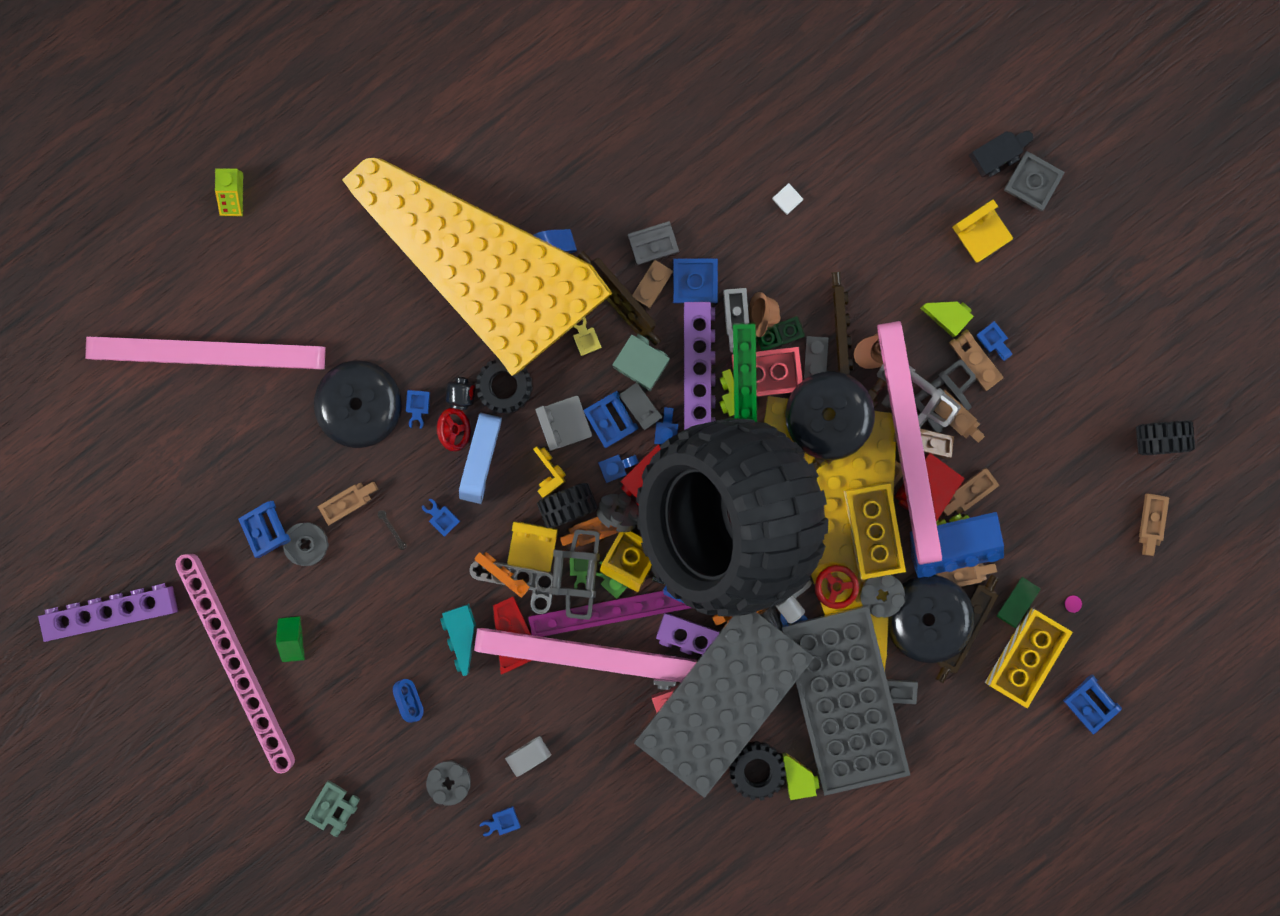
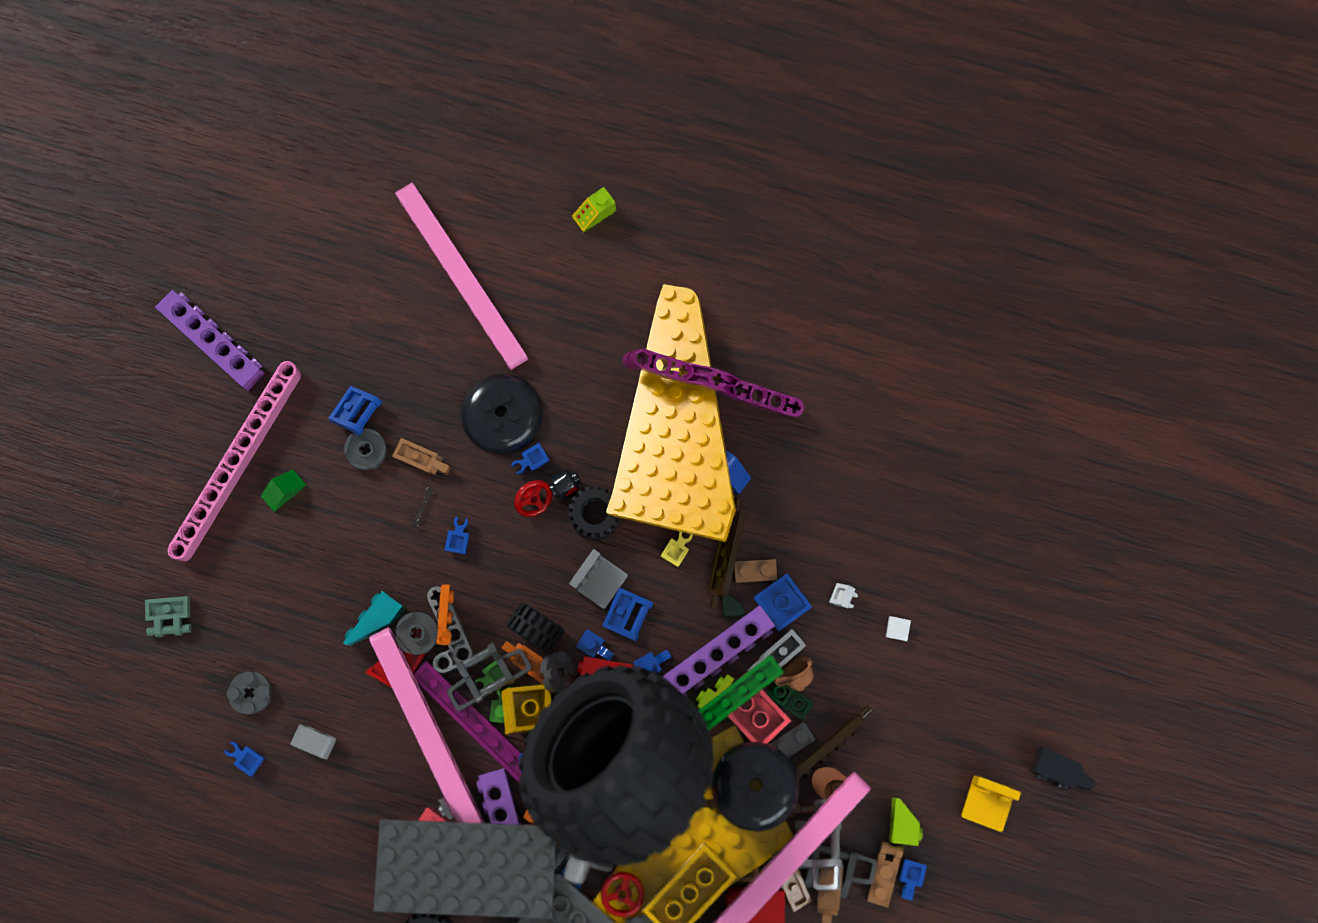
camera: 50 degrees right, 10 degrees down
(408, 700) = (295, 614): blue plate -> none
(455, 207) = (702, 376): none -> magenta beam
(479, 458) = (528, 532): light blue beam -> none
(489, 601) = (415, 645): none -> dark grey plate
(532, 546) = (484, 624): yellow bracket -> none
(549, 484) = (542, 602): yellow bracket -> none
(640, 406) = (654, 630): dark grey bracket -> none
(641, 362) = (689, 604): sand green piece -> none
(653, 243) = (787, 549): flat silver plate -> none
(668, 326) = (731, 607): none -> tile
(727, 225) = (842, 595): none -> white tile
(1034, 181) = (1058, 815): dark grey plate -> none

